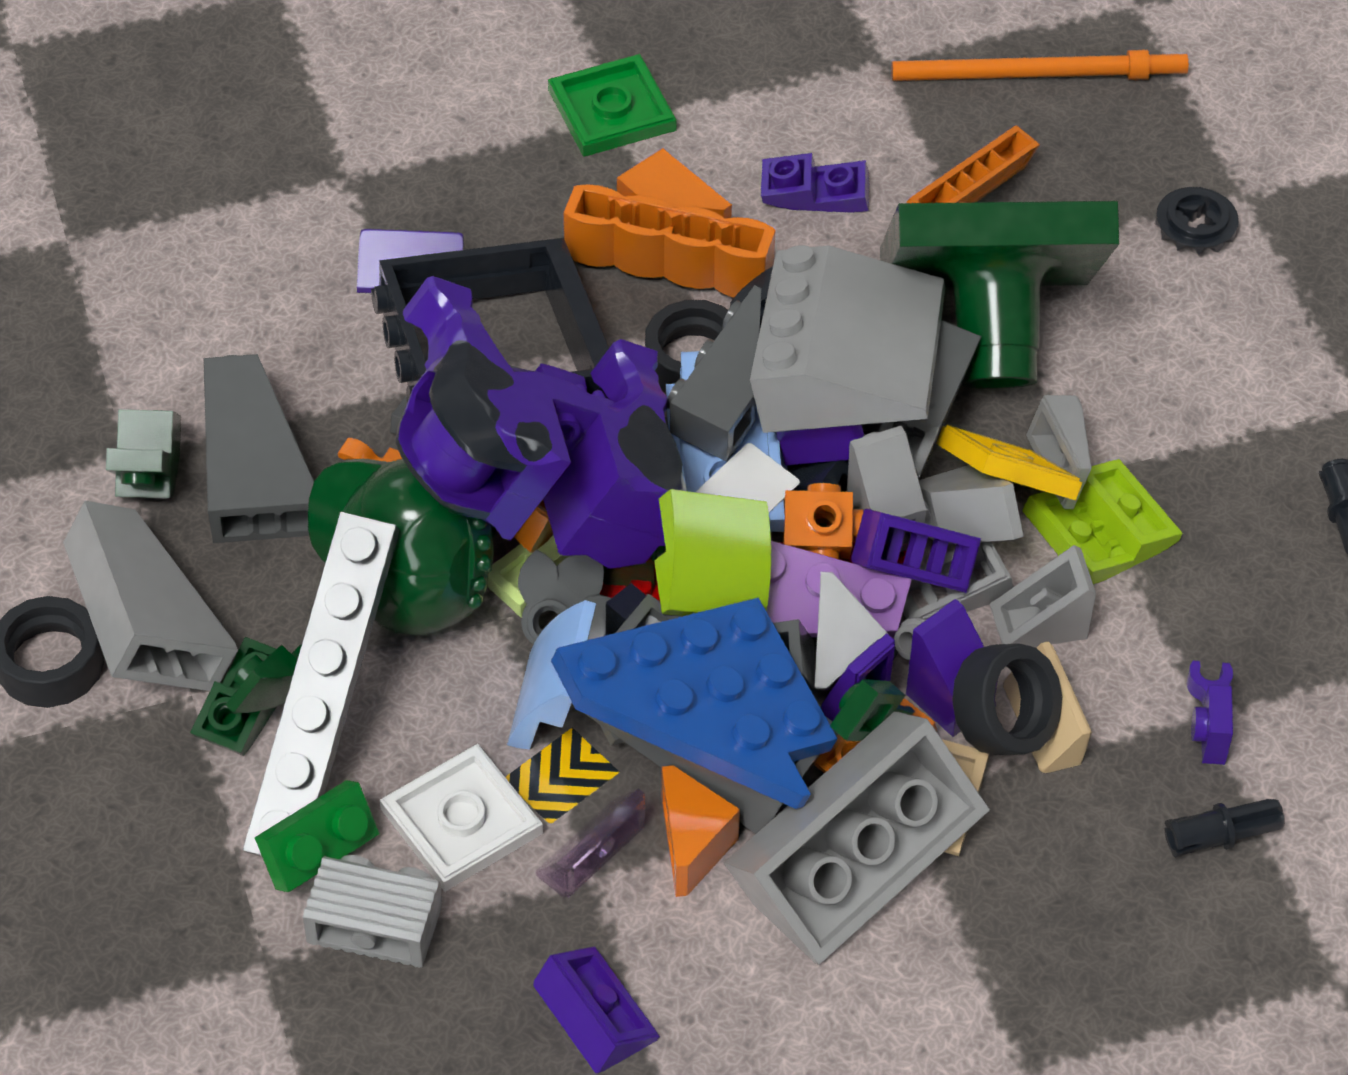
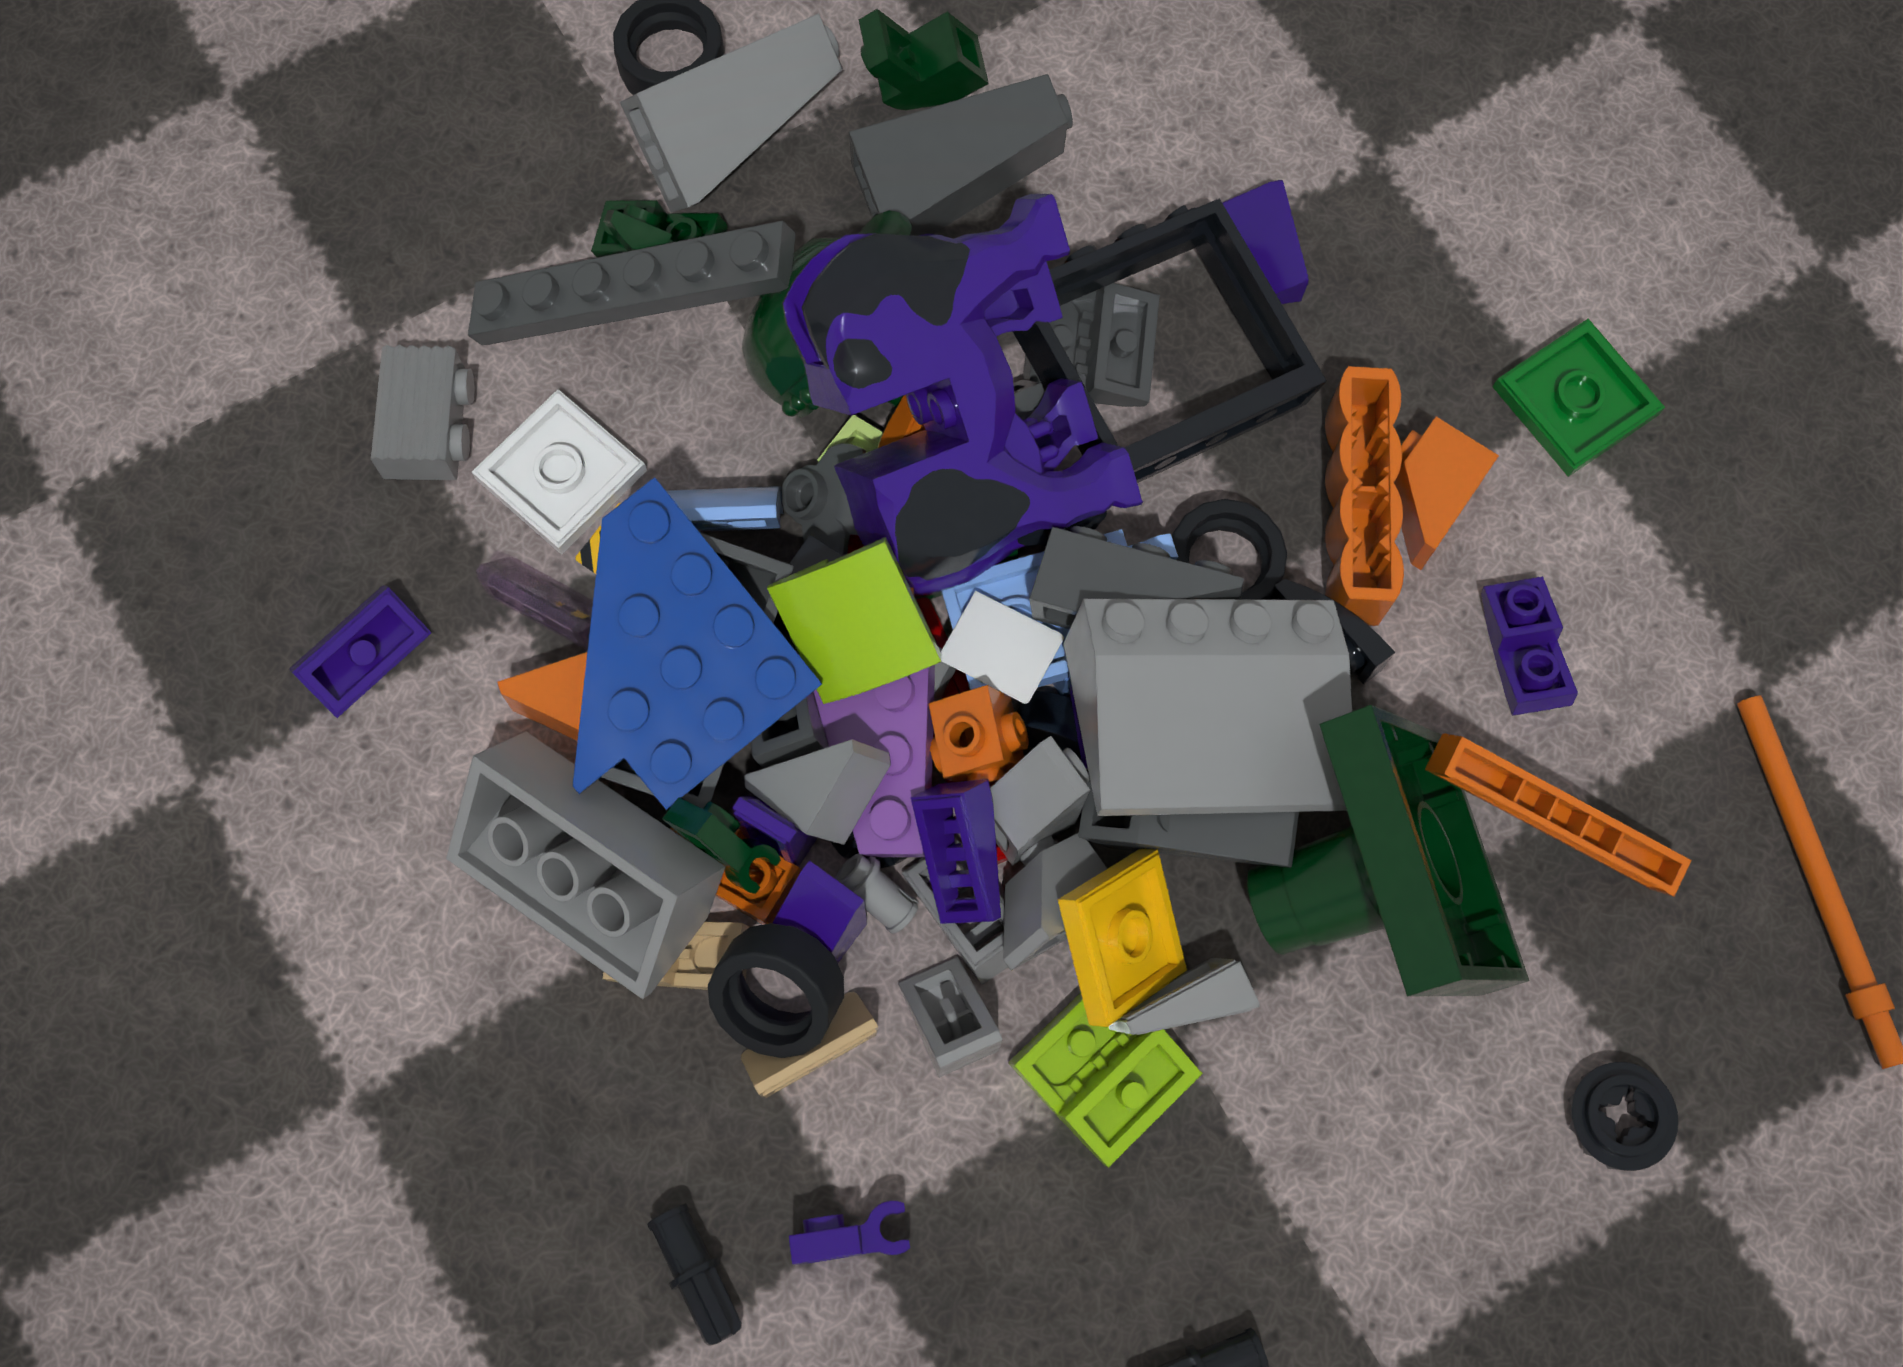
camera: 75 degrees right, 20 degrees up
(325, 827) = (489, 338): green plate -> none

